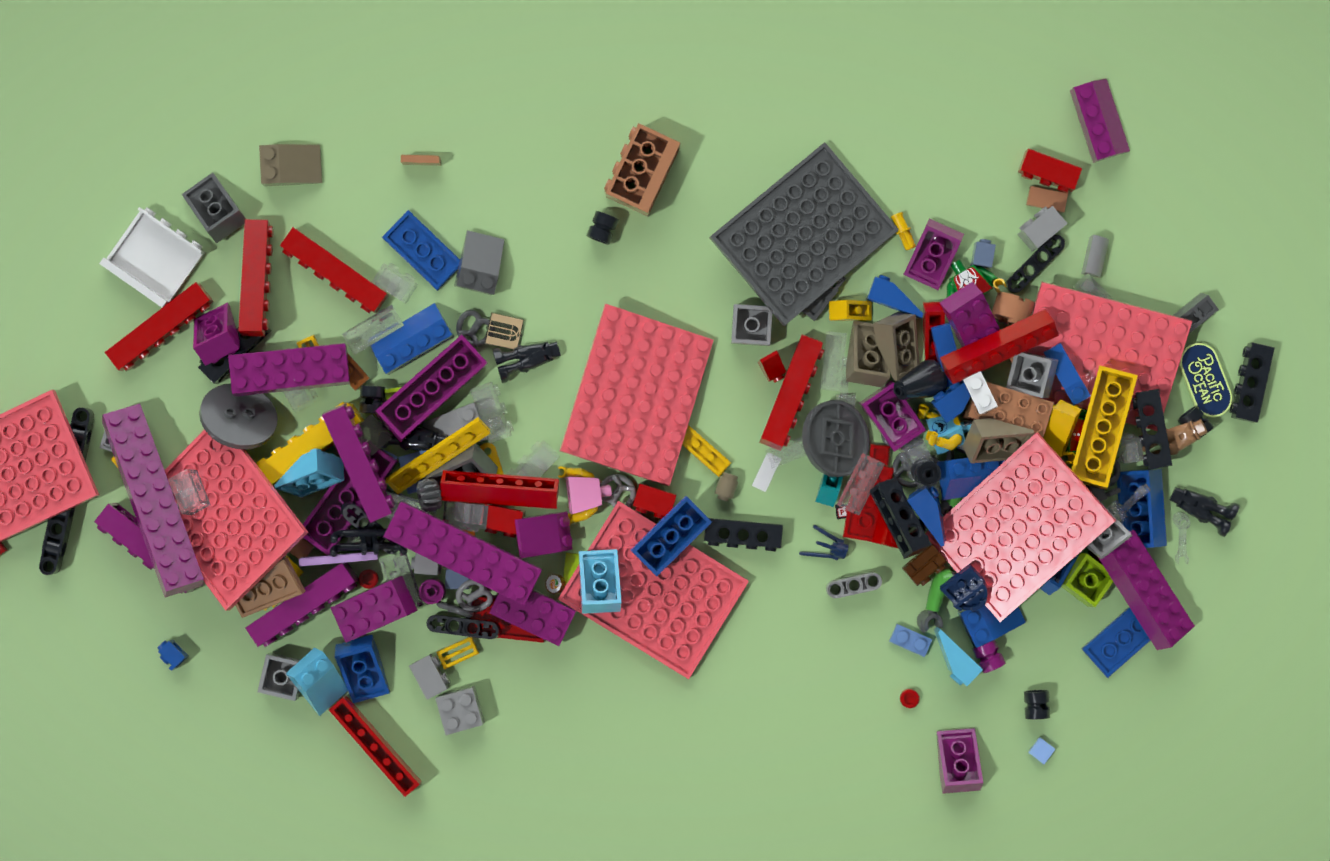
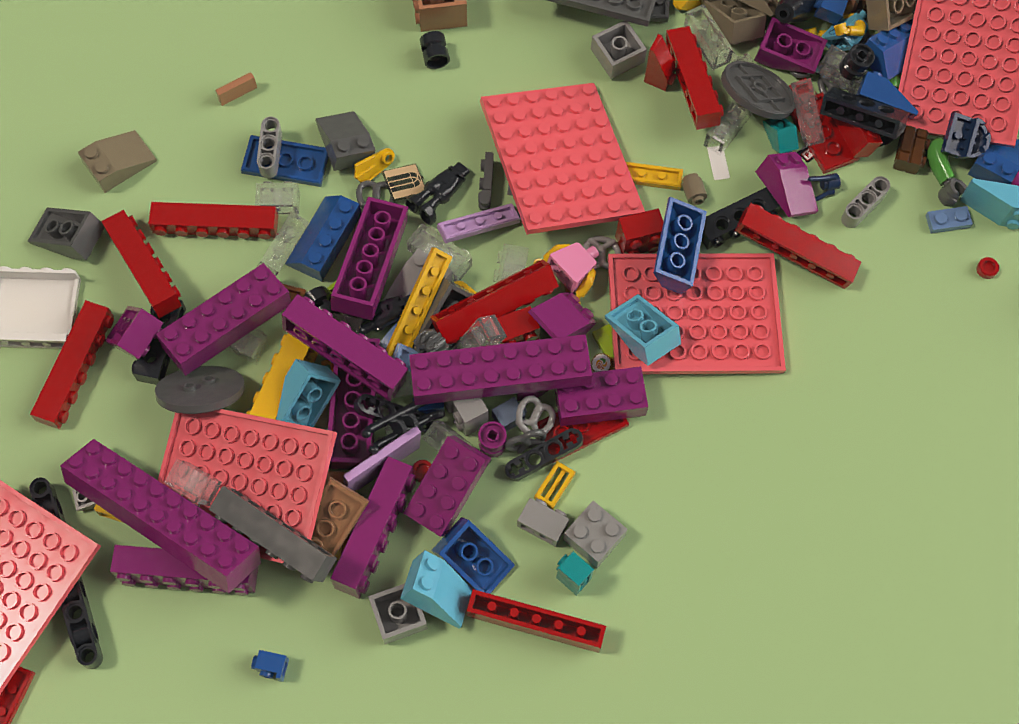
camera: 35 degrees left, 20 degrees down
(219, 574) = (273, 534): none -> dark grey brick
(406, 486) = (403, 352): none -> light blue tile
(422, 231) = (271, 155): none -> light grey beam
(423, 730) = (574, 572): none -> teal brick
(487, 302) = (373, 165): none -> yellow piece
(534, 407) = (478, 223): none -> lavender tile
(566, 374) = (485, 183): none -> dark grey hinge
(768, 589) = (798, 246): none -> red brick
(798, 535) = (788, 183): none -> magenta slope

